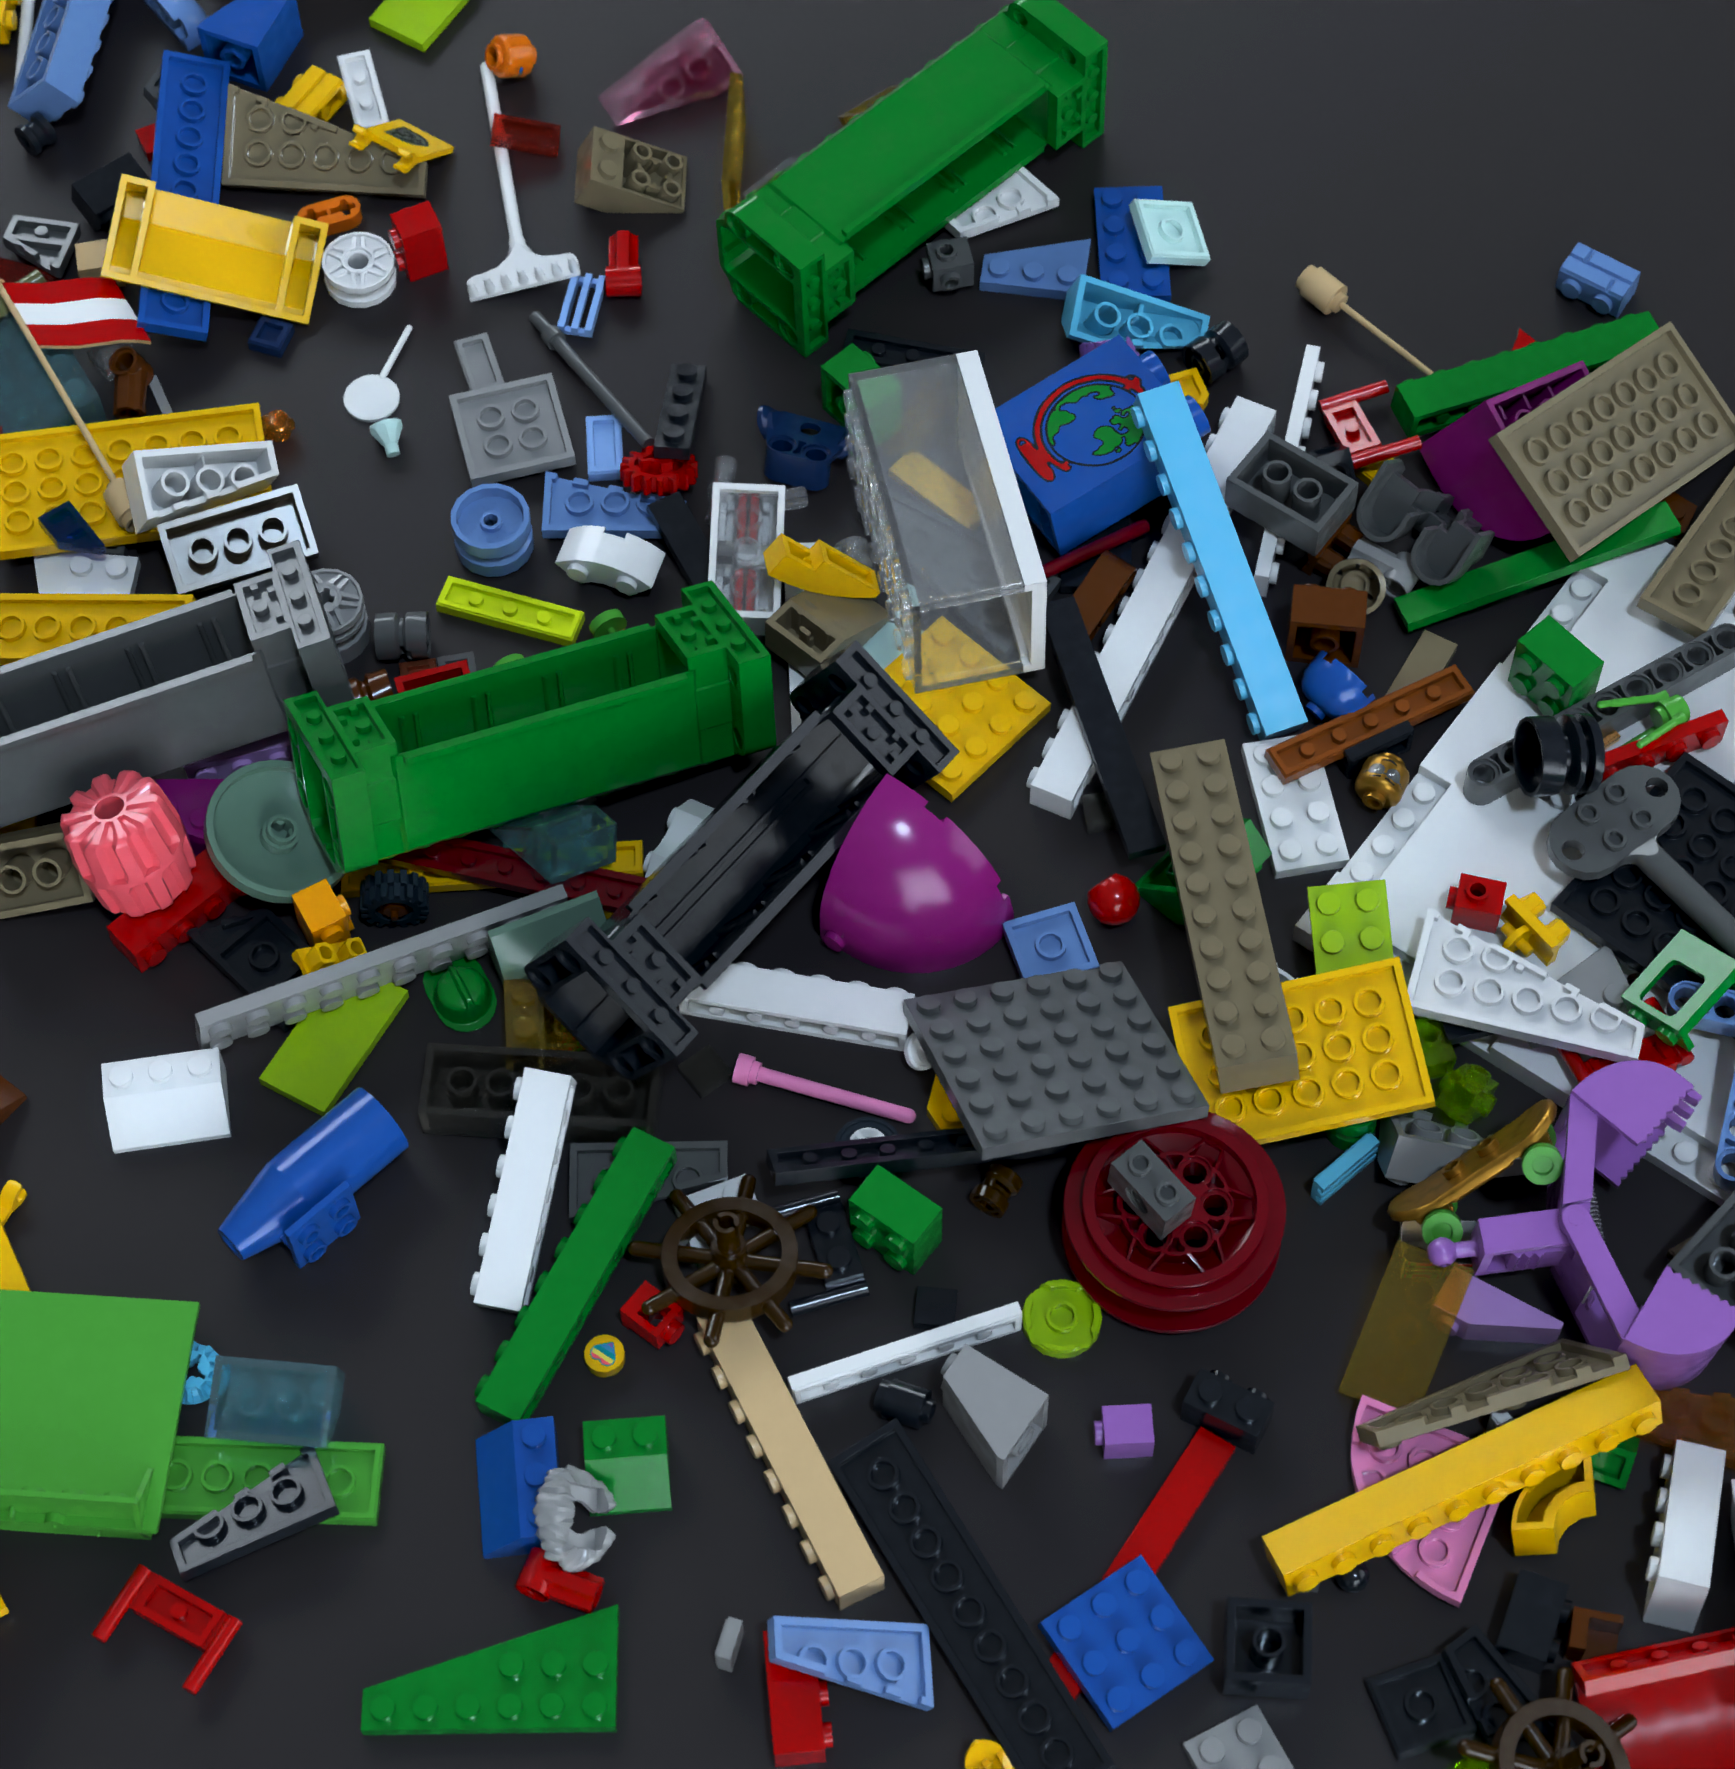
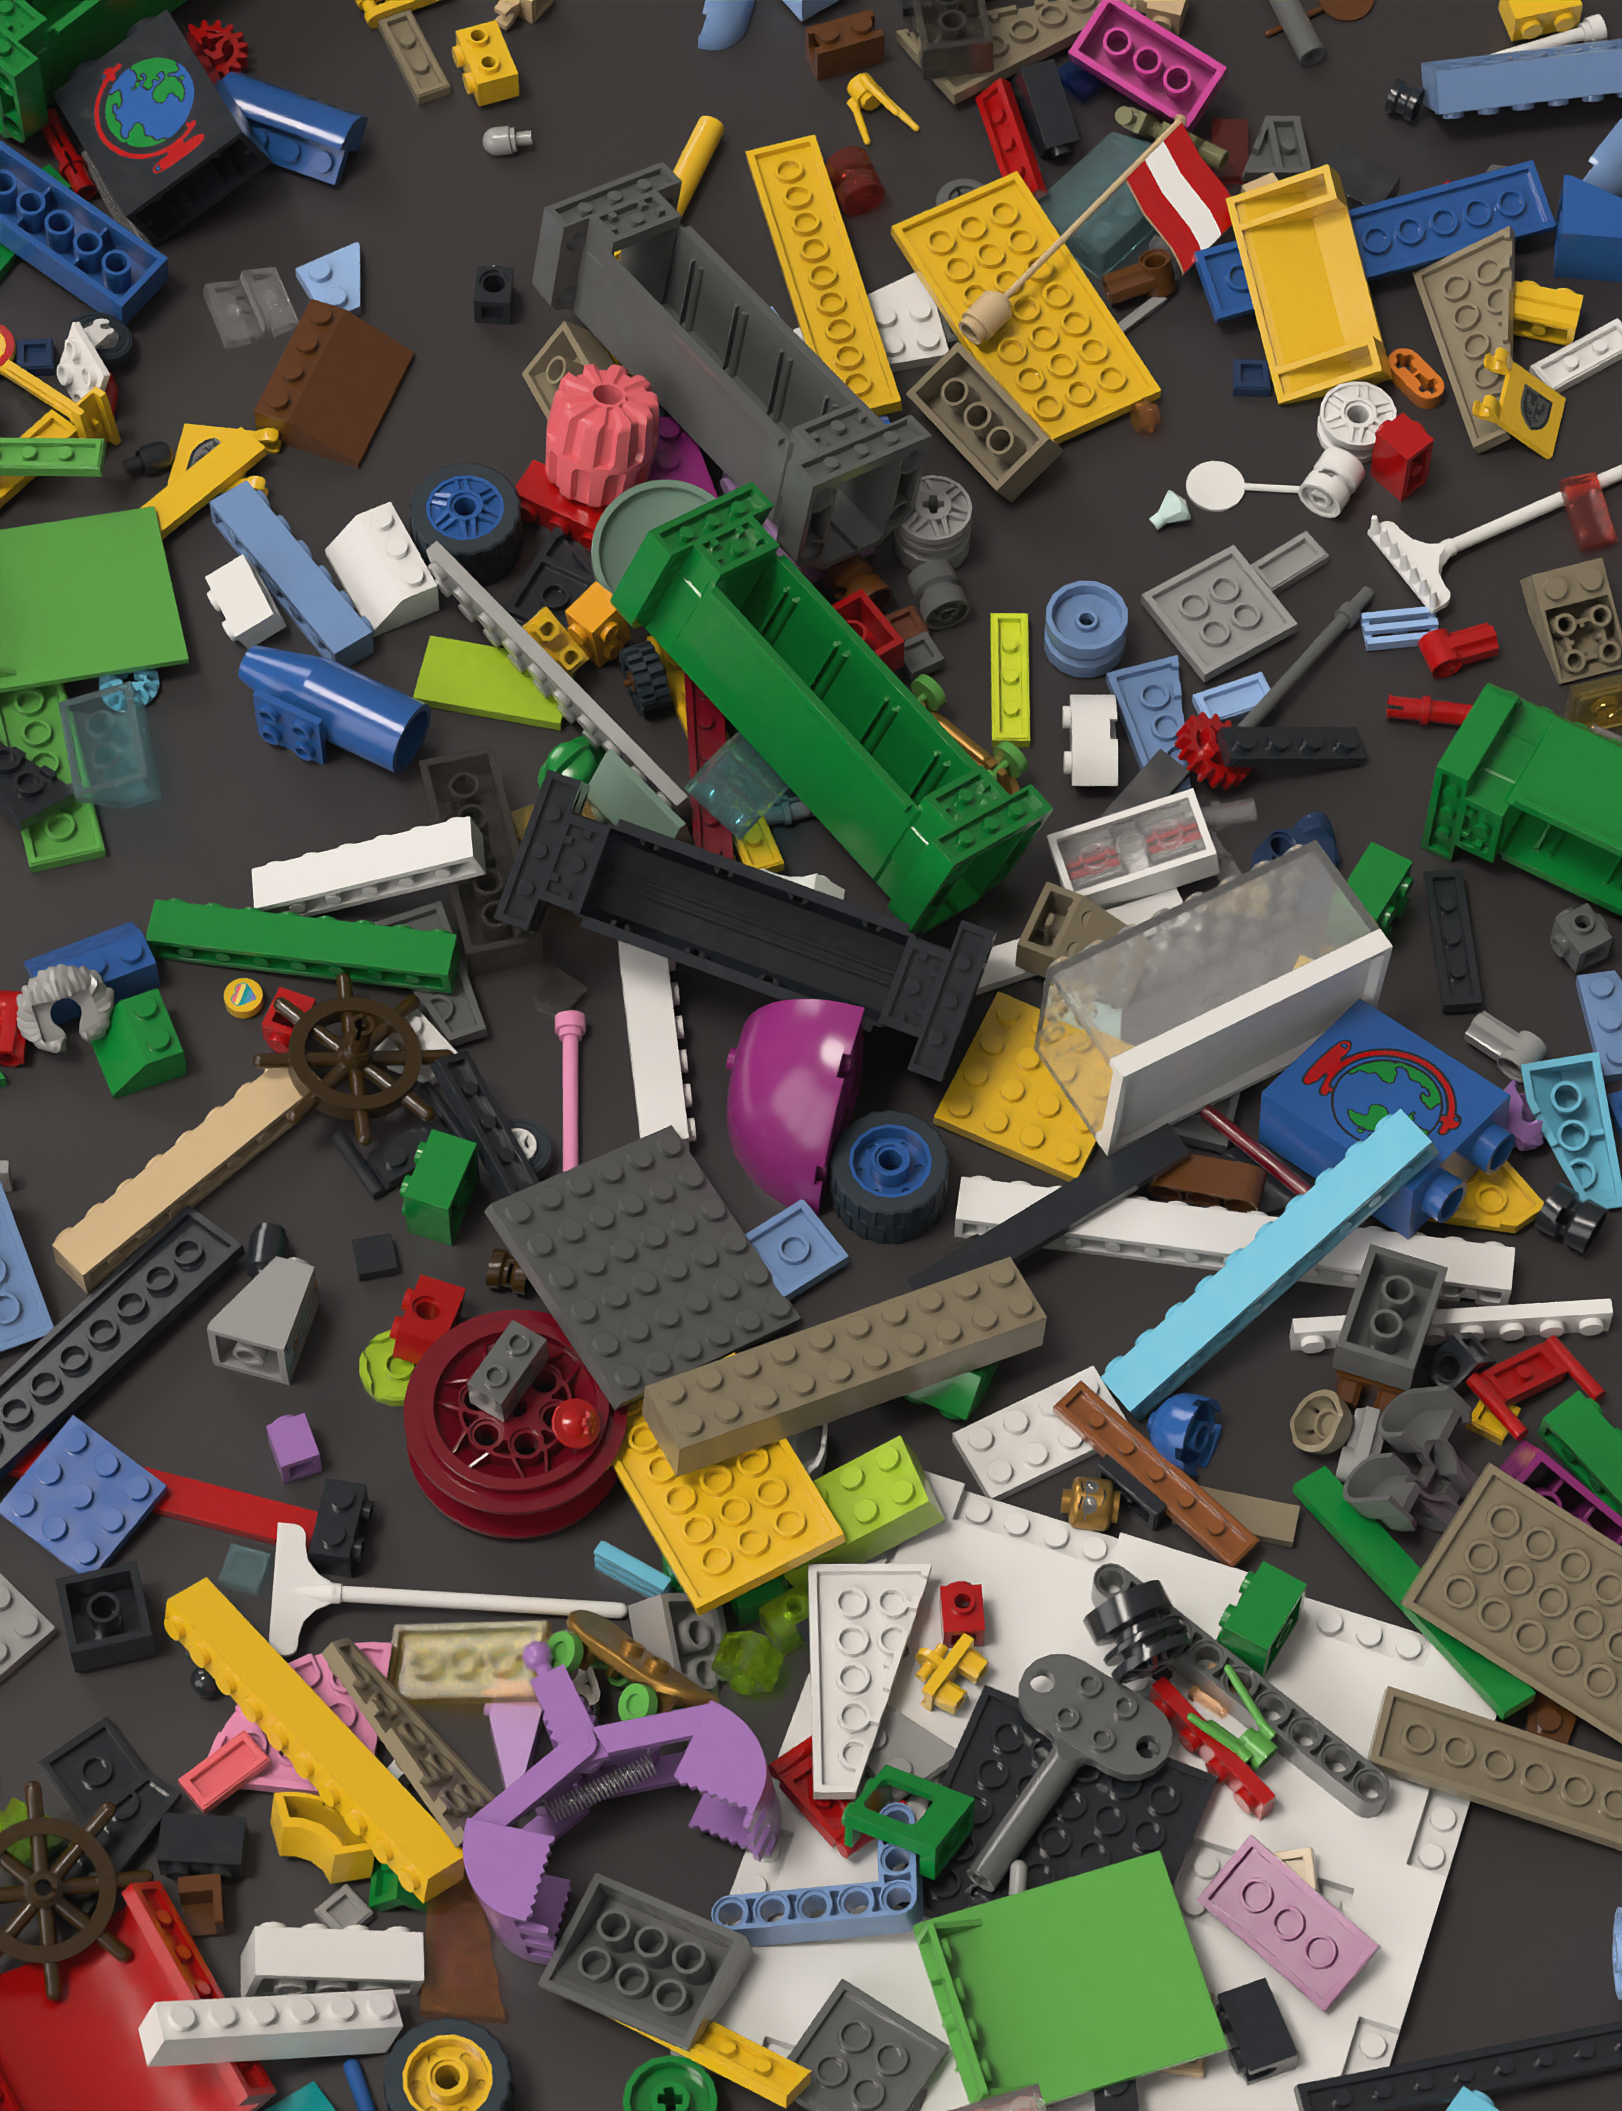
camera: 70 degrees right, 0 degrees up
(70, 530) = (943, 283): clear blue tile -> none
(135, 1185) = (292, 576): none -> medium blue brick
(149, 1001) = (472, 516): none -> black wheel
(152, 1233) = (244, 602): none -> white brick
(194, 478) = (1017, 350): white wedge -> none
(416, 304) = (1331, 482): none -> white wheel
(676, 307) = (1427, 710): none -> red pin
(819, 569) = (1125, 892): yellow slope -> none
(905, 1353) = (316, 1240): white tile -> none
(1018, 834) = (889, 1176): none -> black wheel
(1034, 1271) = (428, 1315): none -> red brick
(1037, 346) = (1505, 1044): none -> light grey piece
(1114, 900) = (861, 1288): red piece -> none
(1221, 1148) = (575, 1423): none -> red hat
(1237, 1513) = (244, 1569): none -> clear light blue tile
(1289, 1456) = (301, 1591): none -> white piece
(1327, 622) = (1255, 1400): reddish brown brick -> none
(1463, 1578) = (224, 1772): none -> coral tile
(1624, 1514) = (343, 1910): none -> light grey tile

